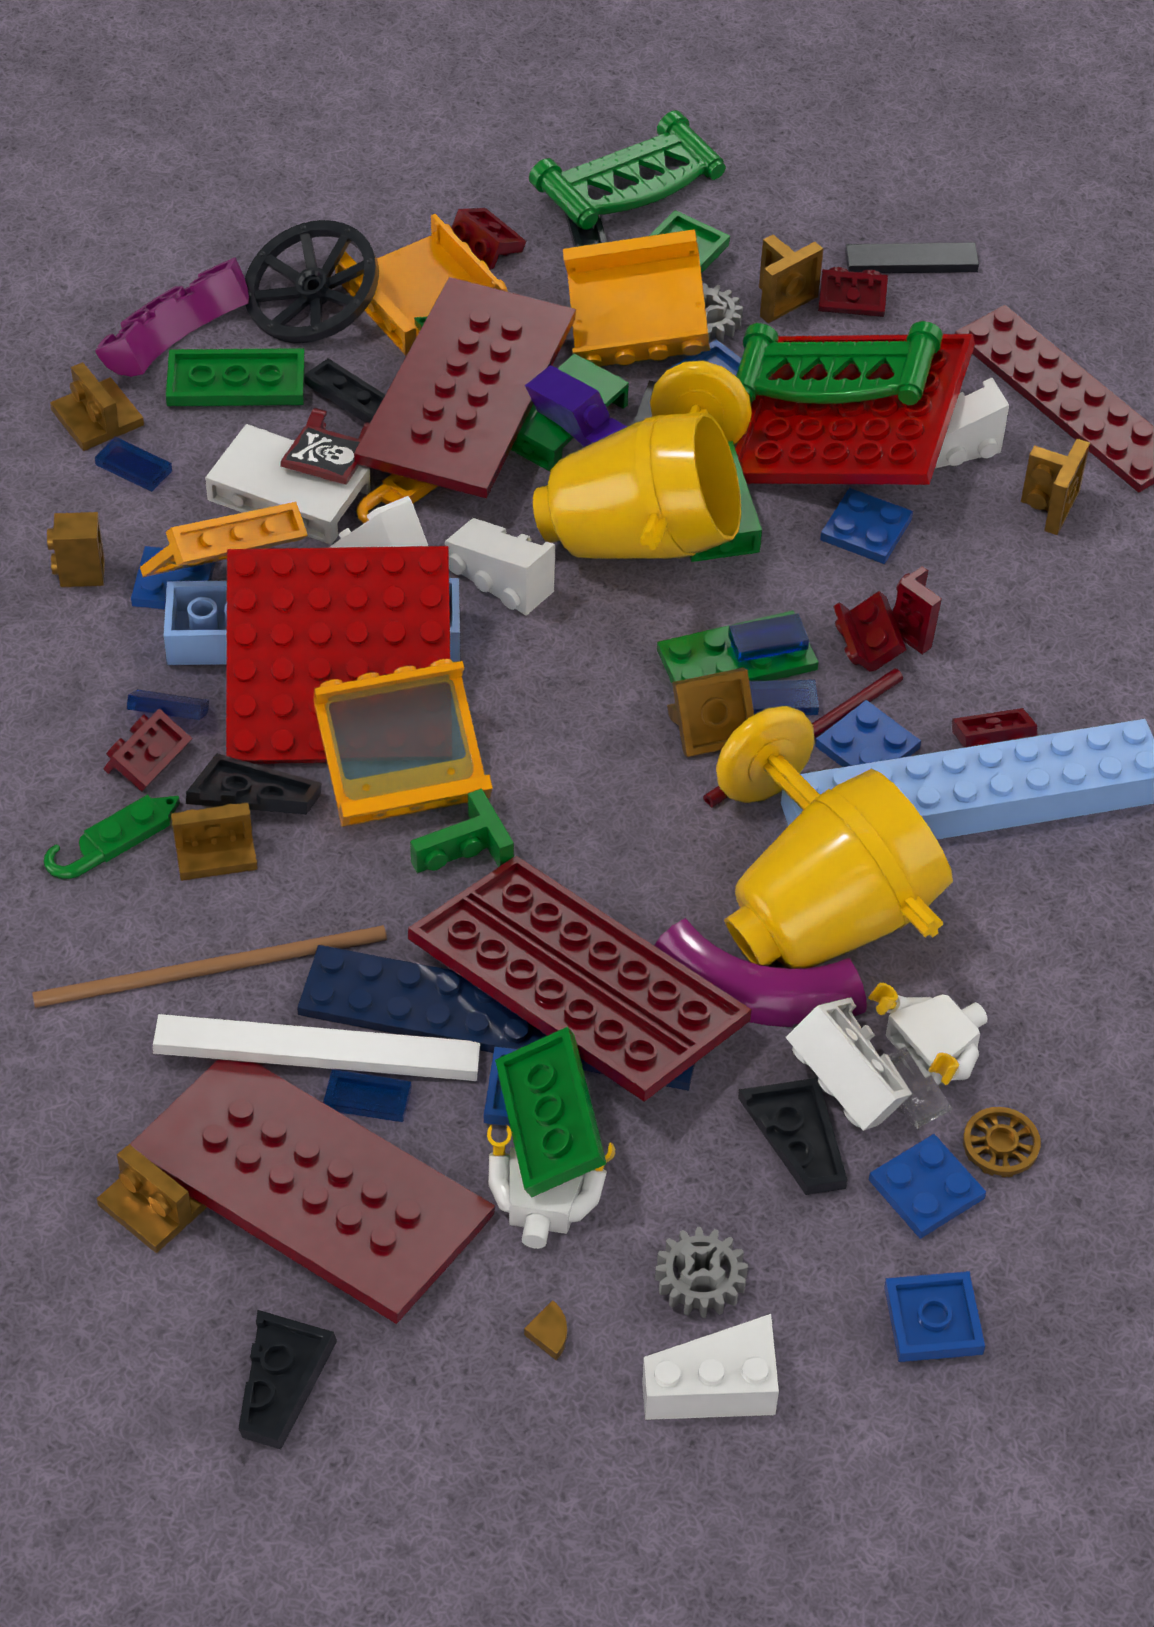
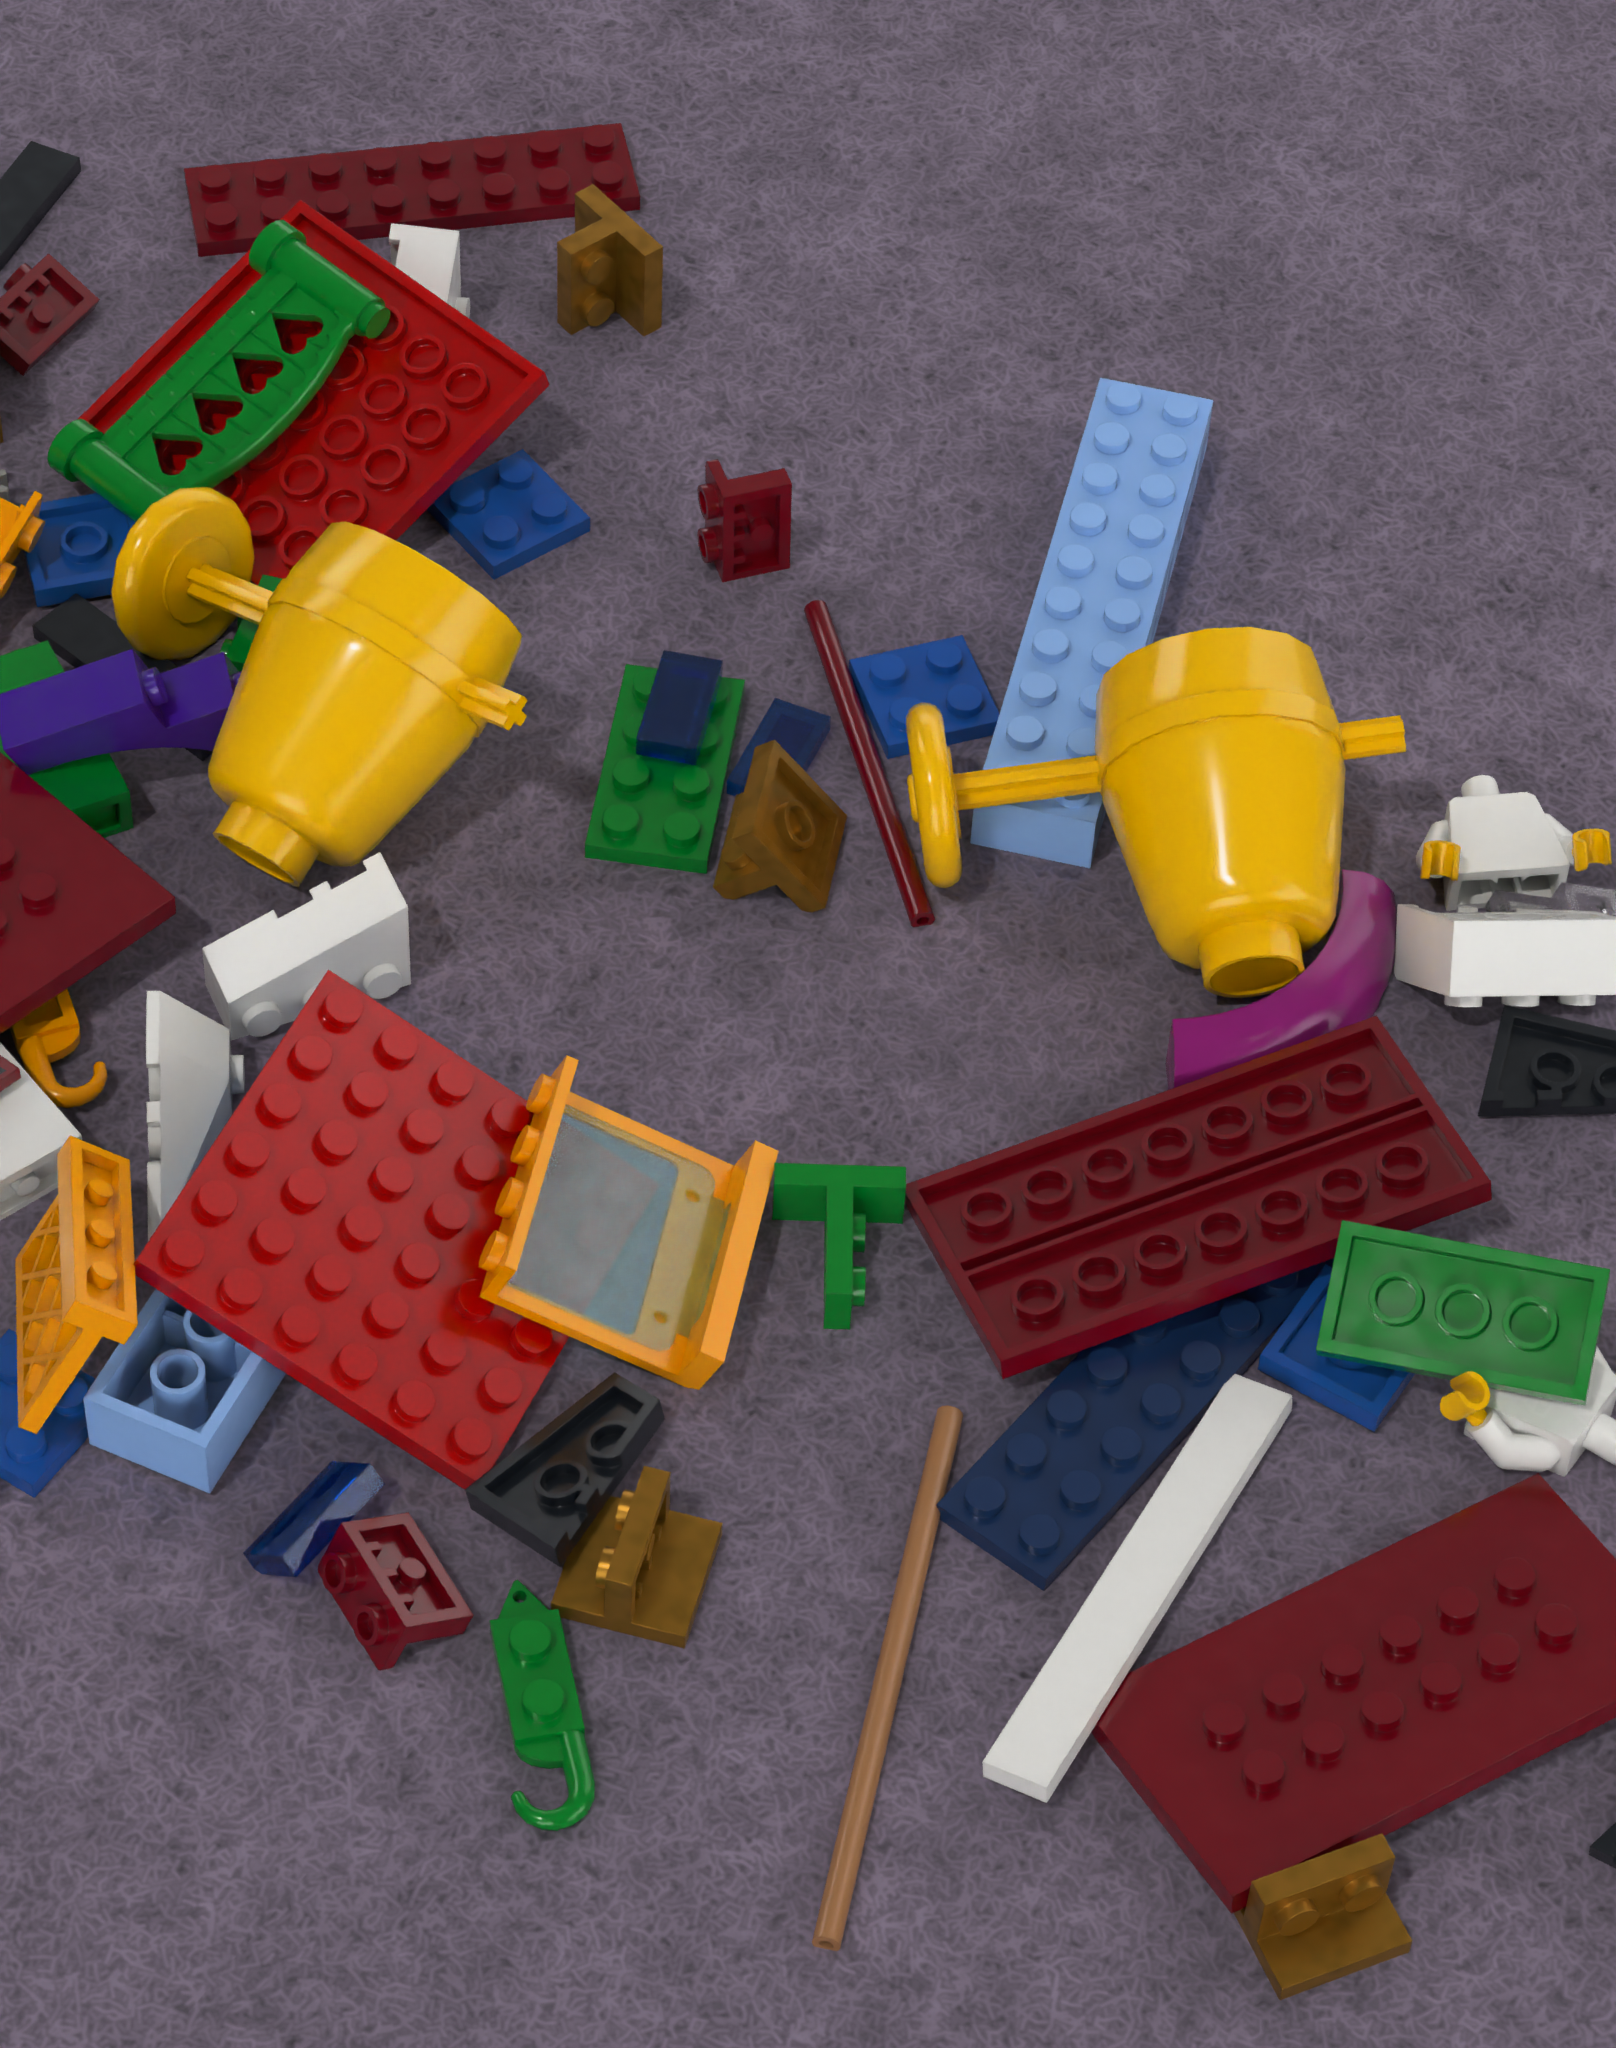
camera: 65 degrees left, 0 degrees up
(368, 1095) = (1253, 1556): clear blue tile -> none
(870, 632) = (733, 593): dark red bracket -> none
(994, 727) = (1002, 550): dark red bracket -> none

